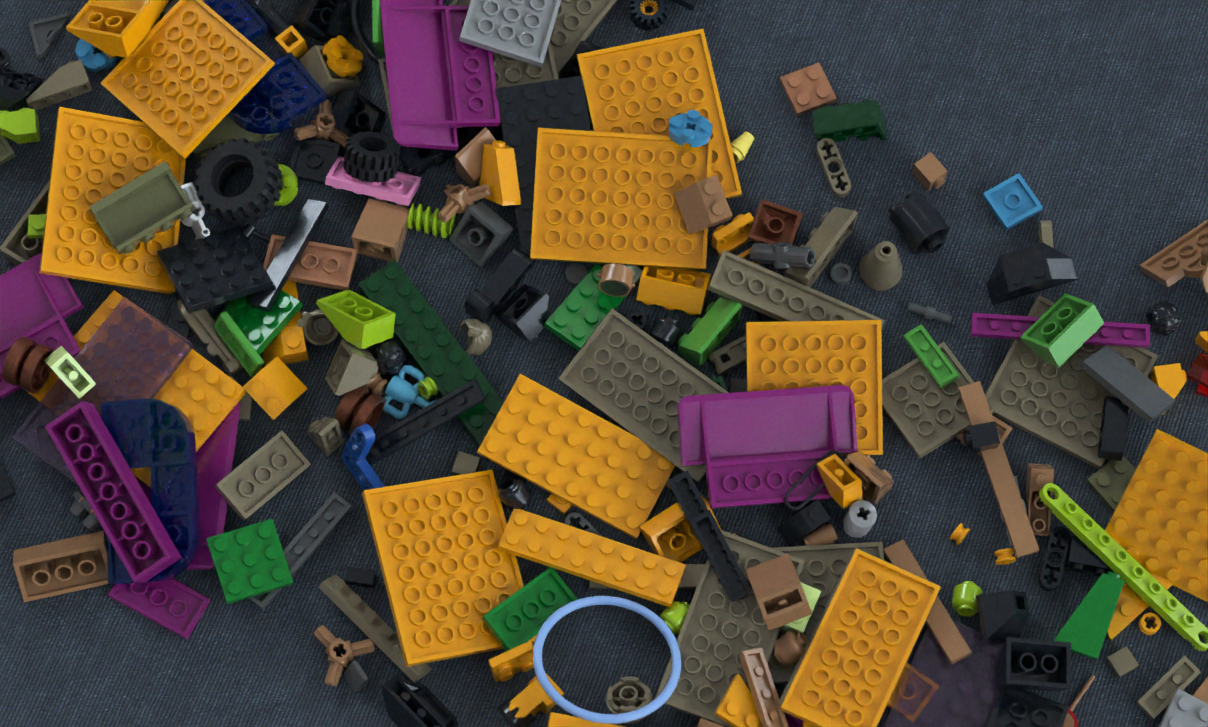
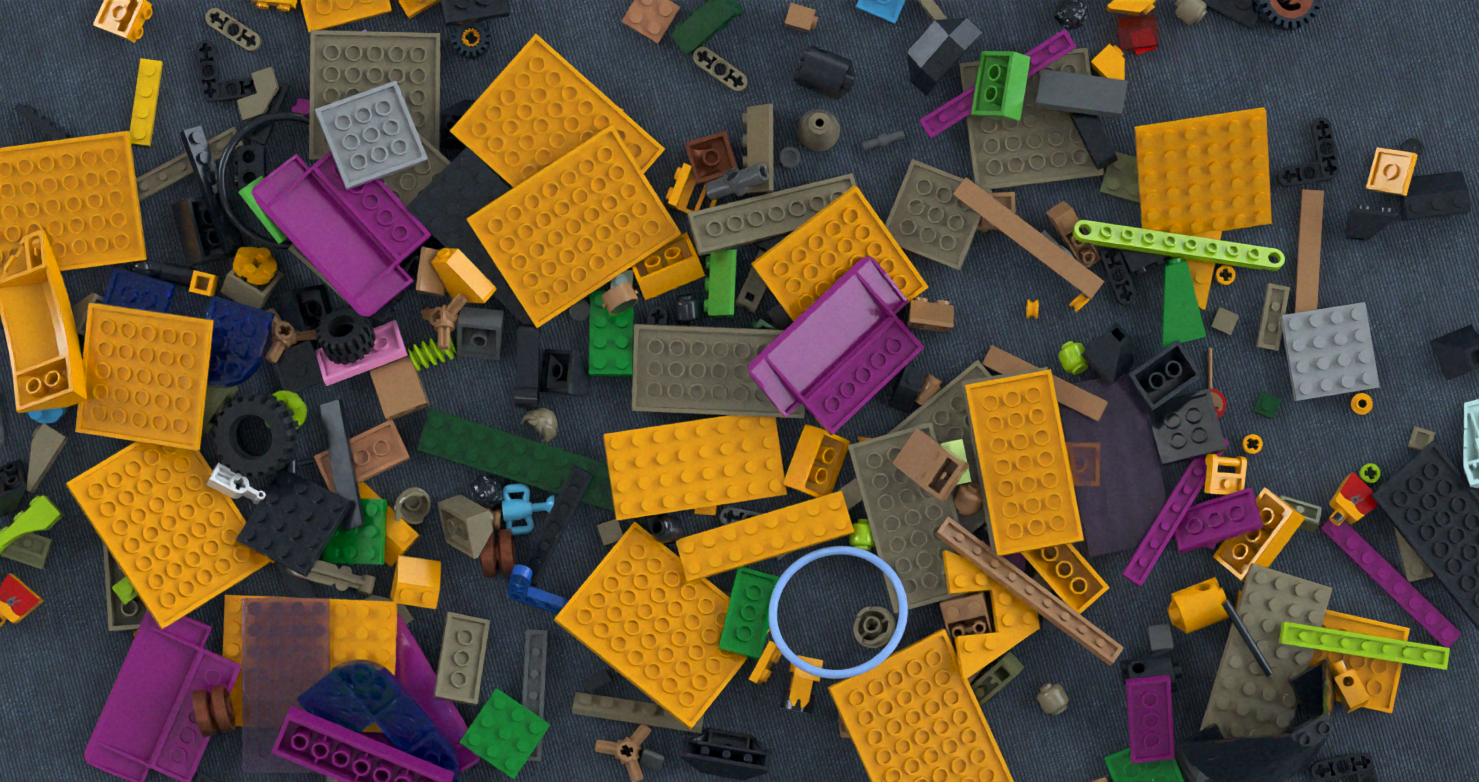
camera: 30 degrees left, 15 degrees up
(70, 372) = (252, 693): yellowish green brick -> none
(142, 209) = (201, 517): olive panel -> none
(238, 344) = (360, 568): bright green tile -> none
(326, 434) = (483, 589): dark tan slope -> none
(358, 318) = (439, 479): lime slope -> none
(427, 388) = (536, 494): lime bush -> none
(690, 129) = (587, 119): dark azure plate -> none
(703, 205) = (644, 186): medium nougat slope -> none
(708, 536) = (844, 457): black slope -> none
(741, 146) = (633, 105): light yellow cone -> none
(804, 476) = (885, 349): black piece -> none
(840, 481) = (915, 339): light orange slope -> none
(859, 519) = (956, 357): light grey piece -> none
(931, 356) = (911, 179): bright green tile -> none
(981, 437) = (1000, 224): black brick -> none

